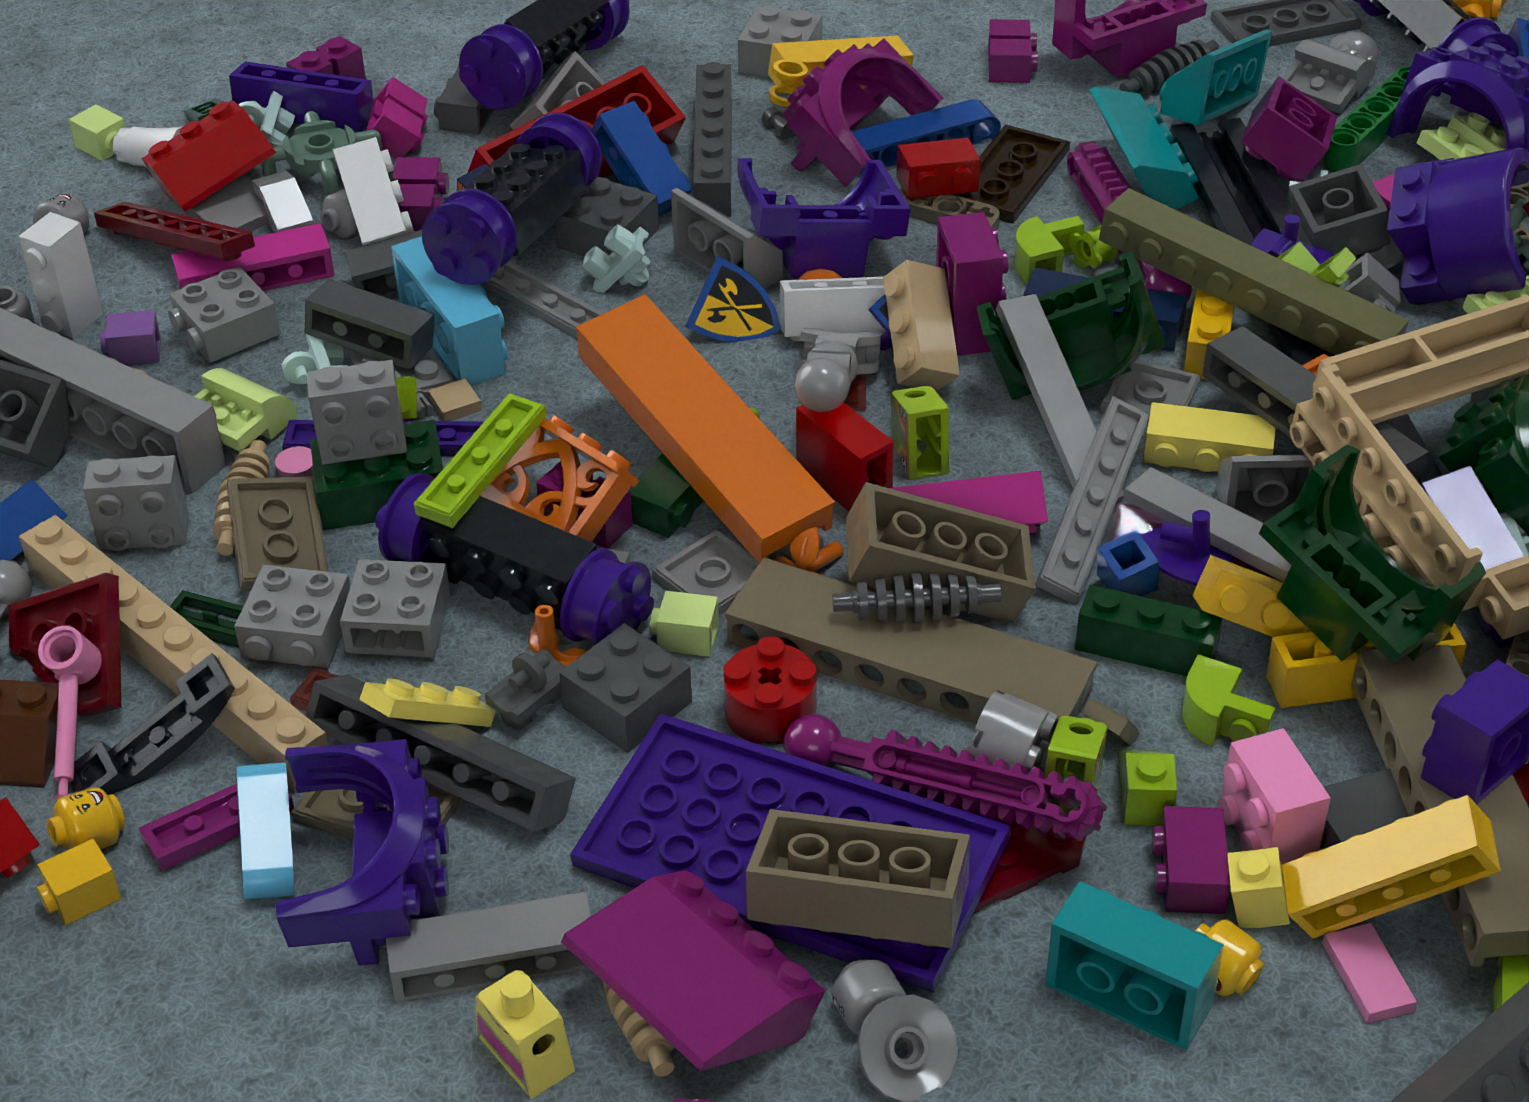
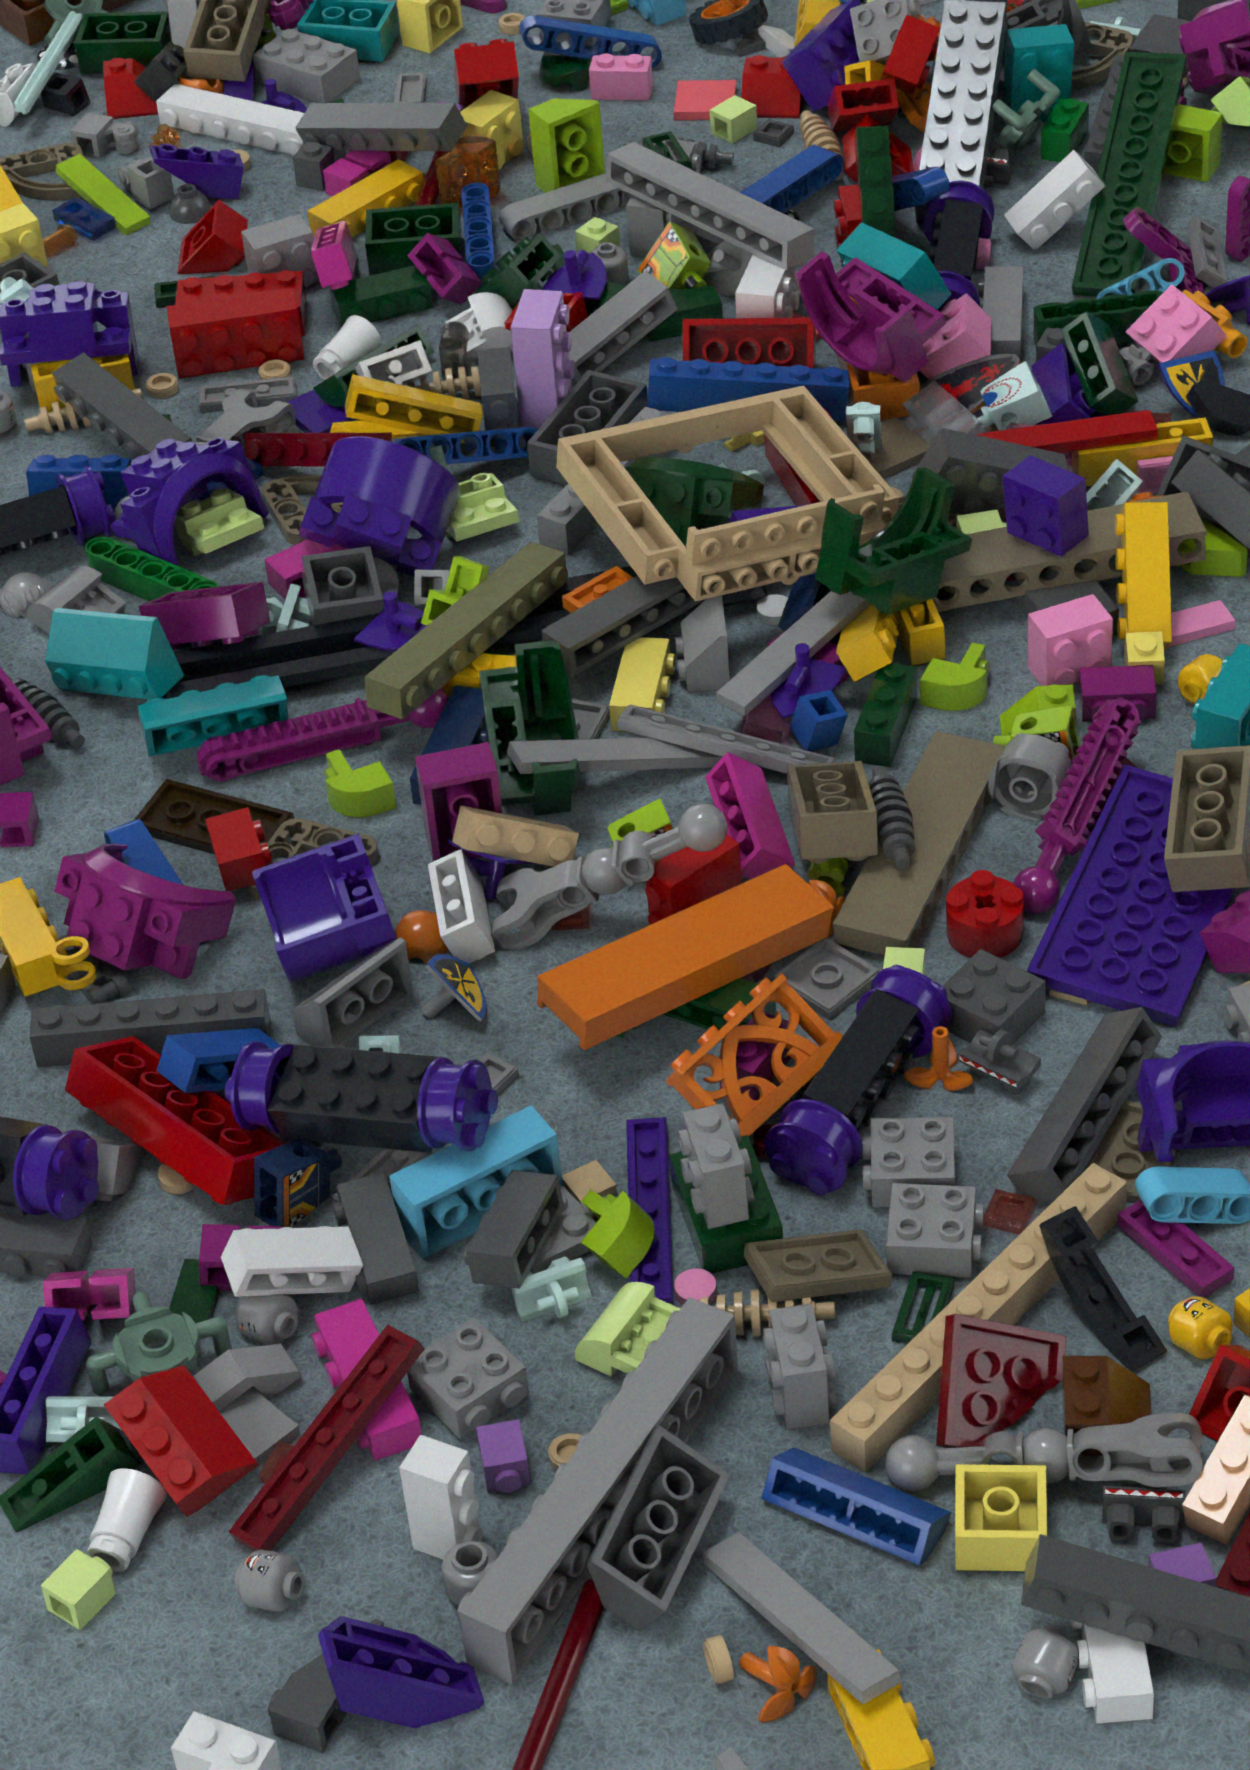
camera: 90 degrees left, 0 degrees up
(76, 671) = (1049, 1338): bright pink piece -> none
(428, 703) = (1049, 1102): light yellow plate -> none
(480, 460) = (778, 1068): lime tile -> none
(1089, 250) = (358, 750): lime brick -> none
(1117, 724) = (990, 729): dark tan tile -> none

